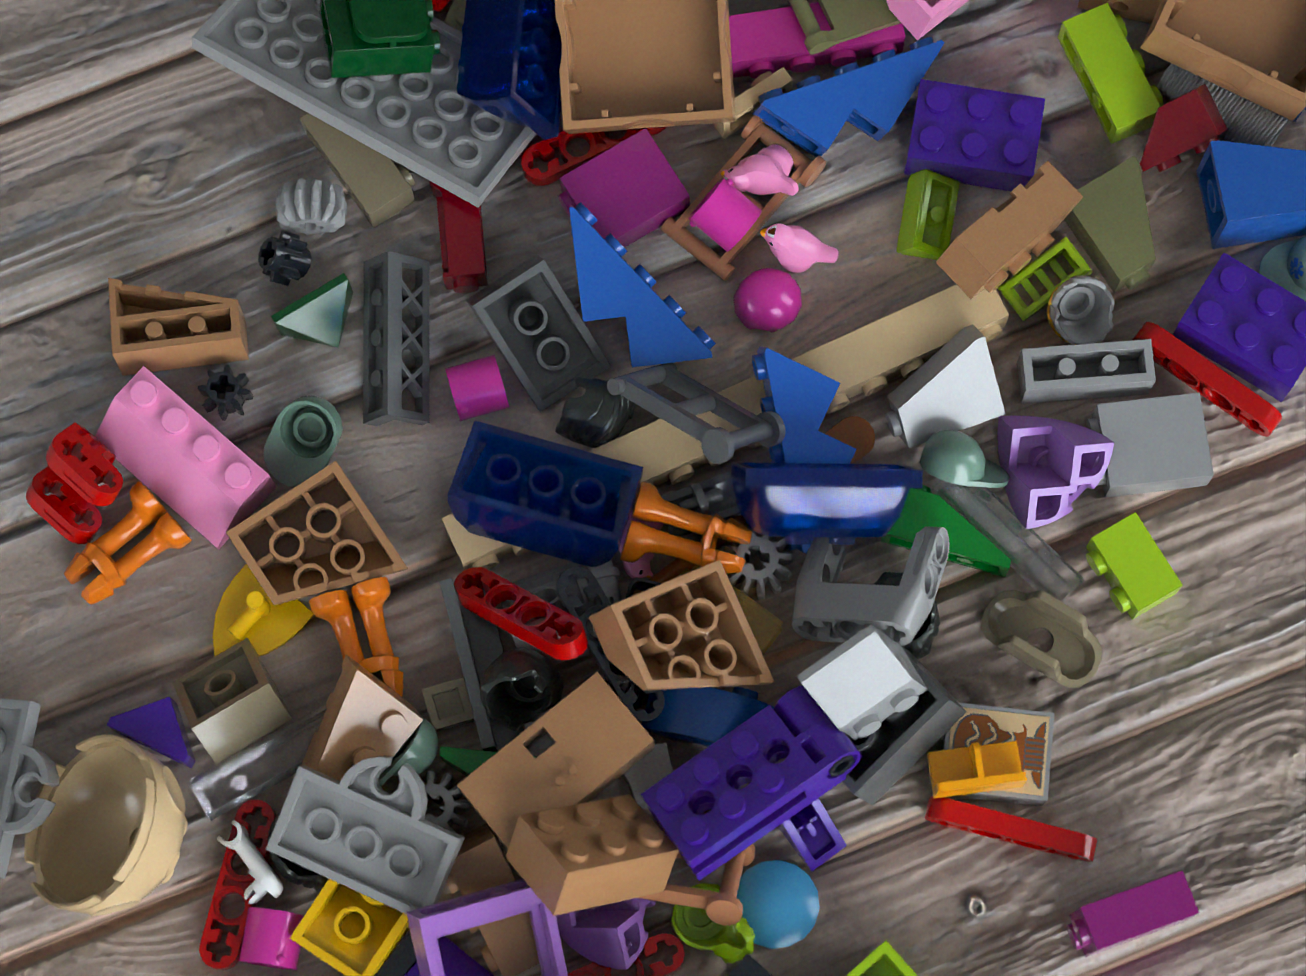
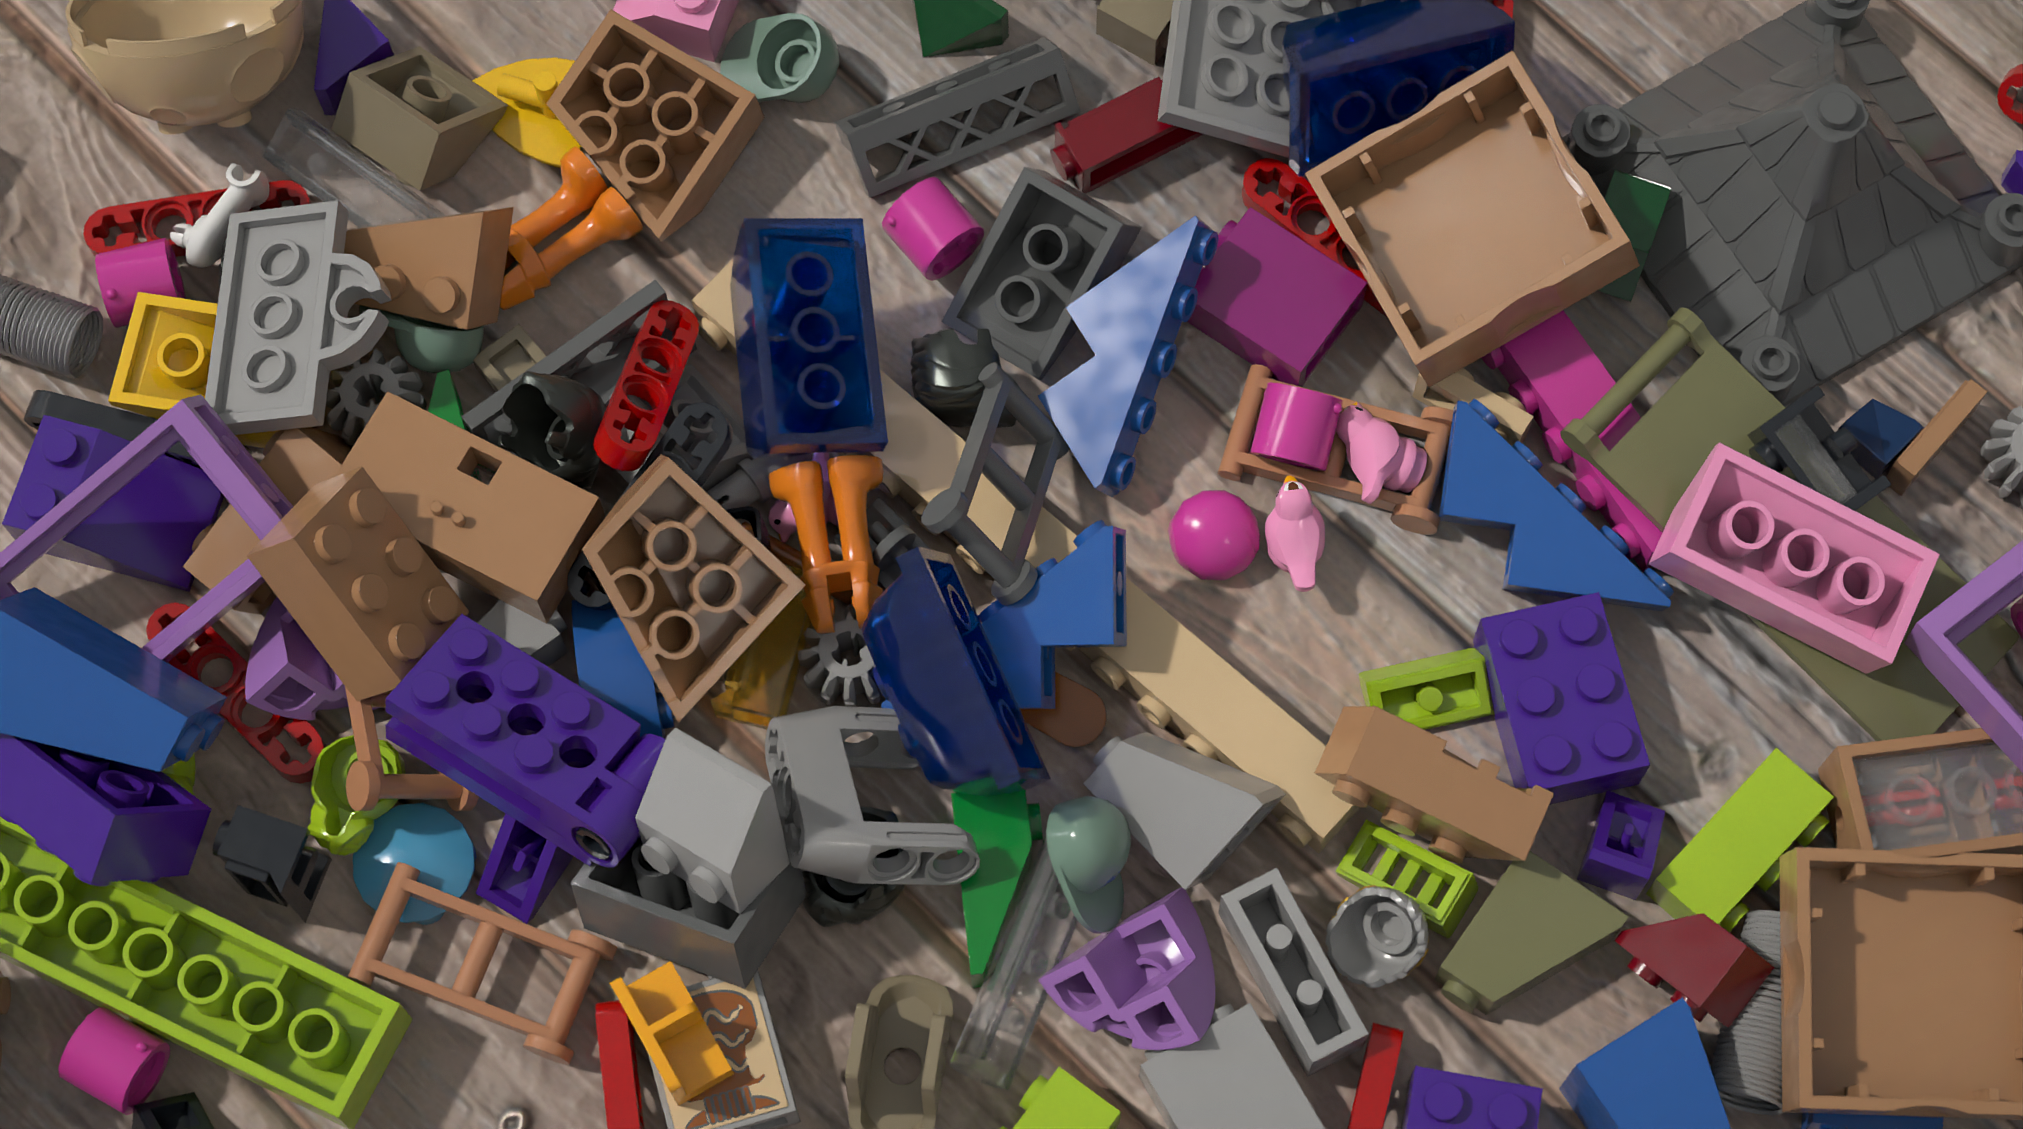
camera: 65 degrees right, 5 degrees down
(883, 813) = (541, 1040): none -> nougat piece
(1080, 141) = (1622, 846): none -> dark purple slope

